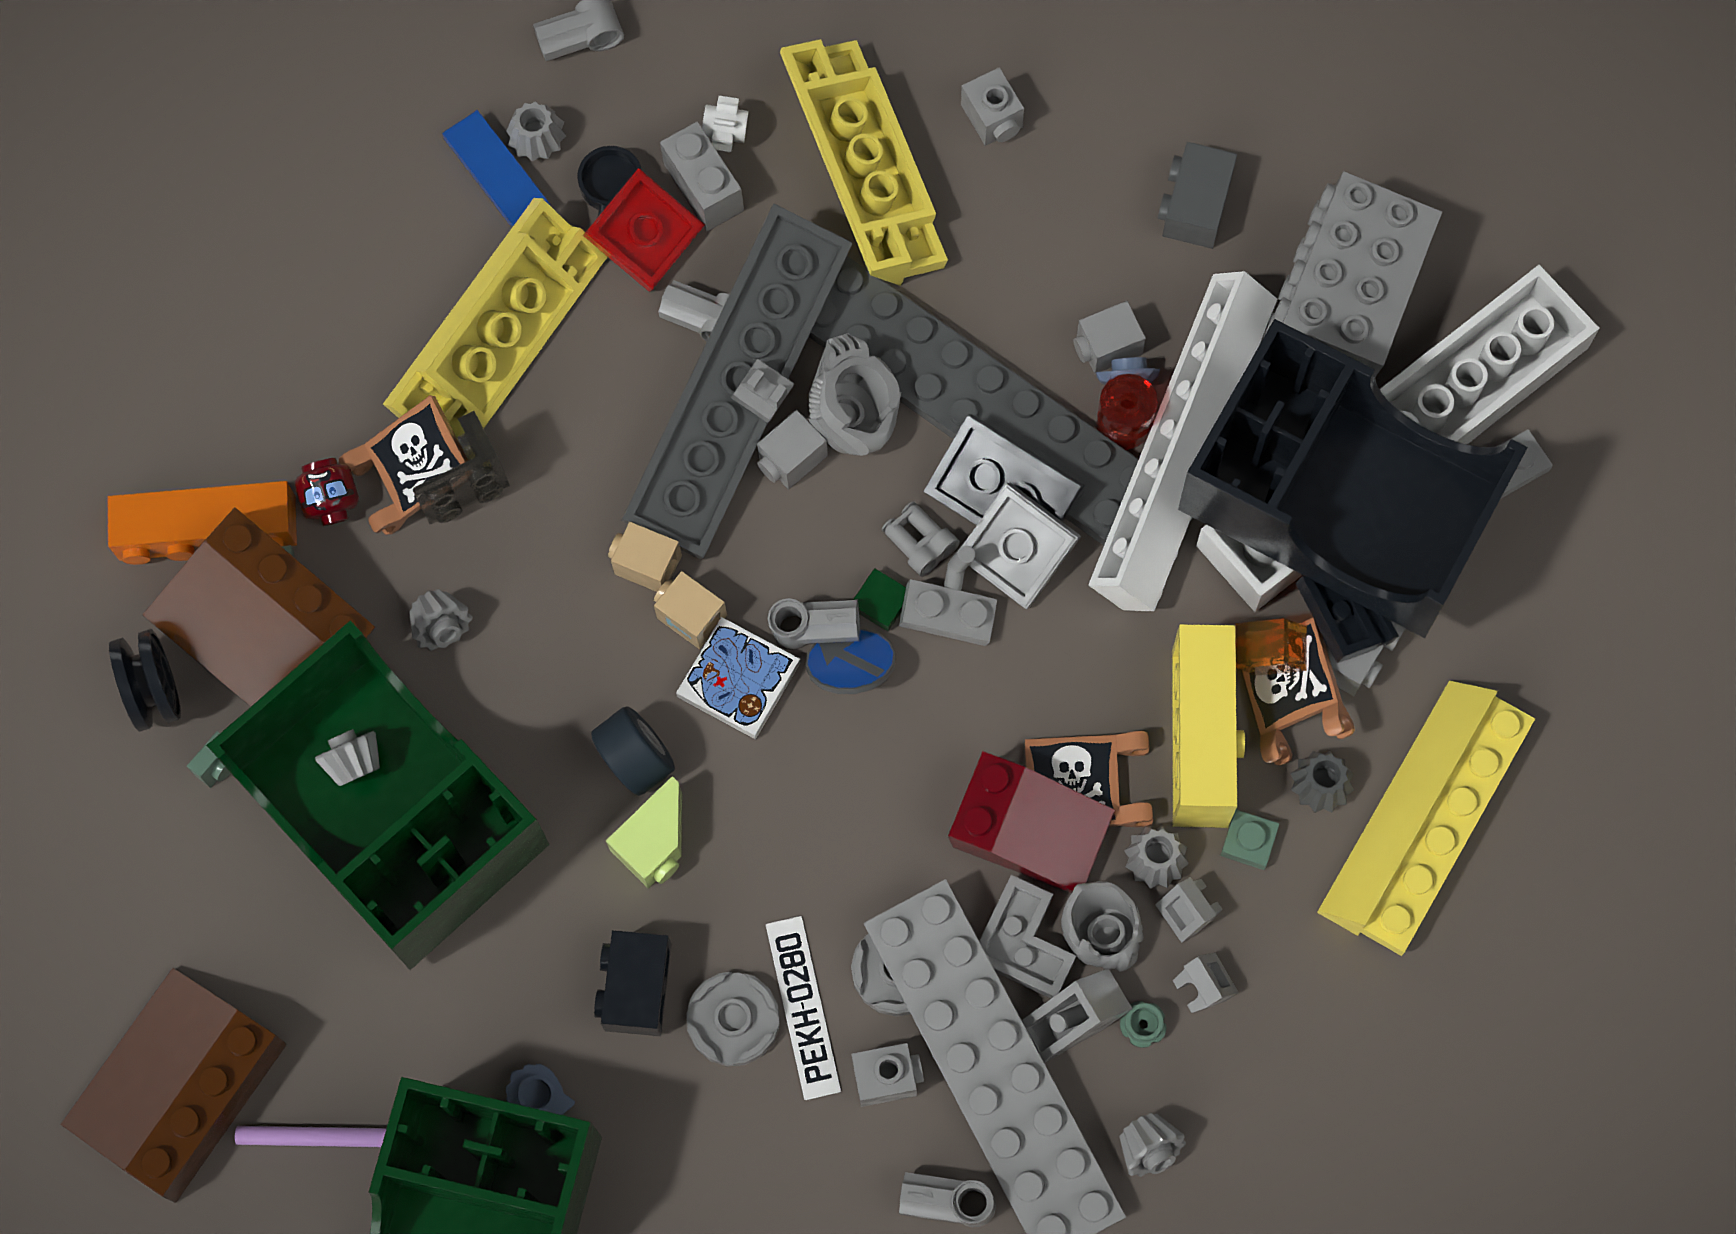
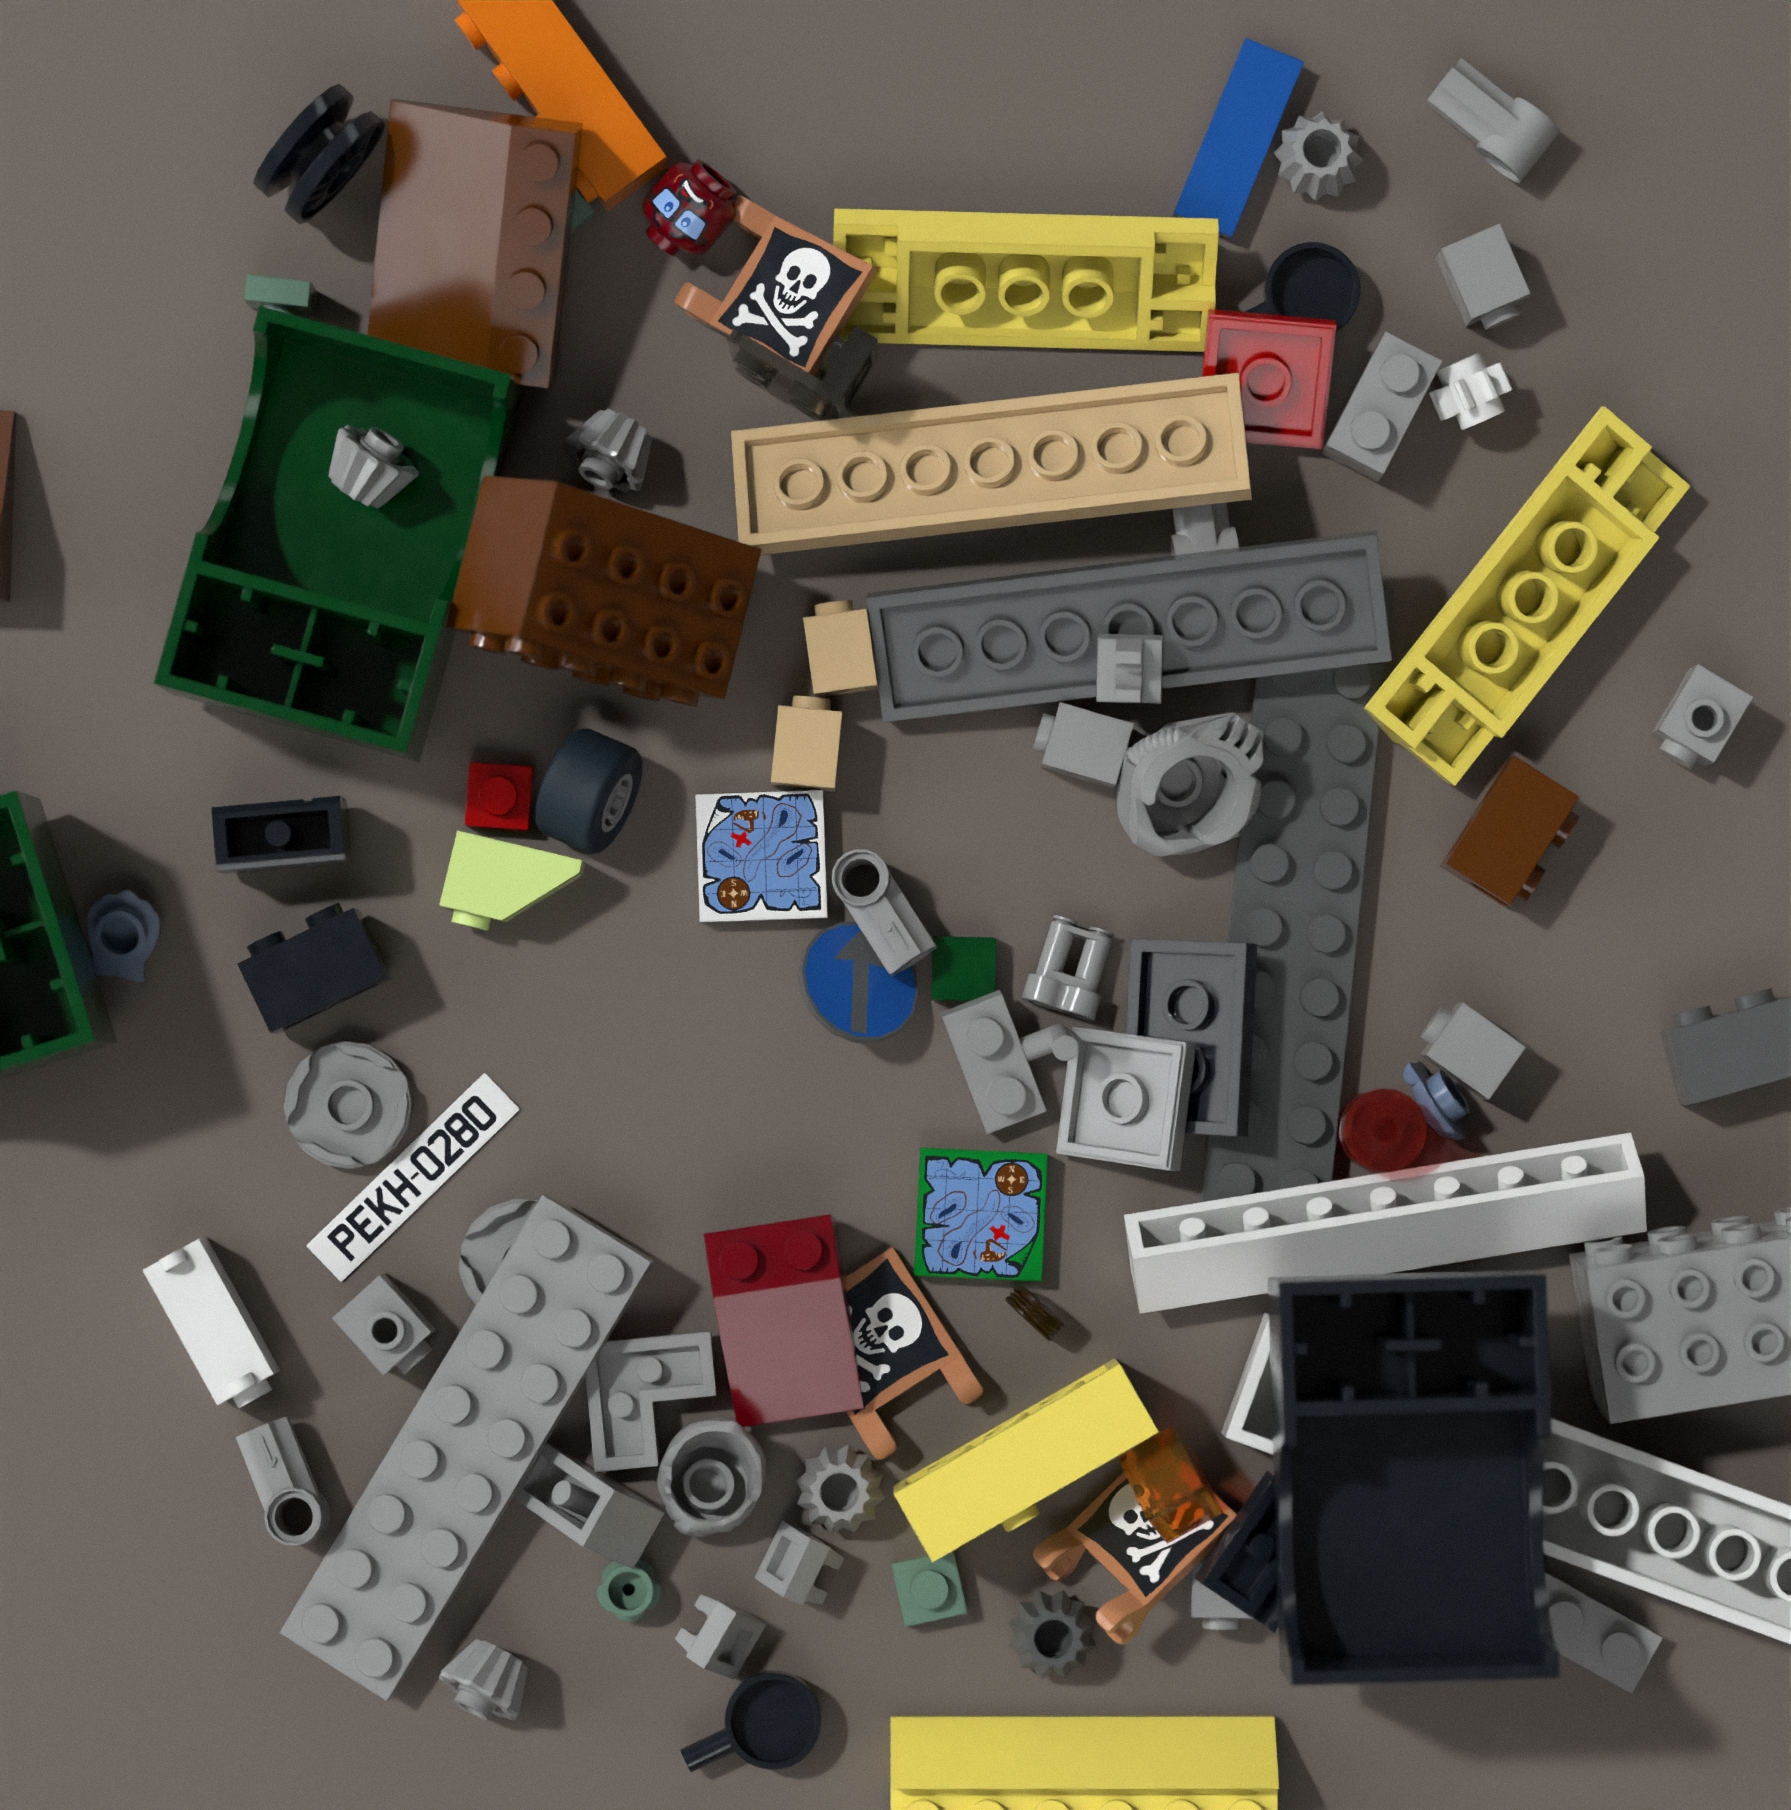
camera: 55 degrees right, 15 degrees up
(514, 653) = (602, 590): none -> reddish brown brick
(539, 952) = (281, 835): none -> black brick
(590, 405) = (991, 464): none -> tan plate
(601, 811) = (499, 796): none -> red plate
(664, 82) = (1484, 278): none -> light grey brick
(817, 1184) = (213, 1323): none -> white brick
(994, 245) = (1511, 833): none -> reddish brown brick
(1036, 675) = (980, 1214): none -> tile
(1130, 671) = (1034, 1312): none -> dark brown axle
(1278, 985) = (767, 1723): none -> black piece

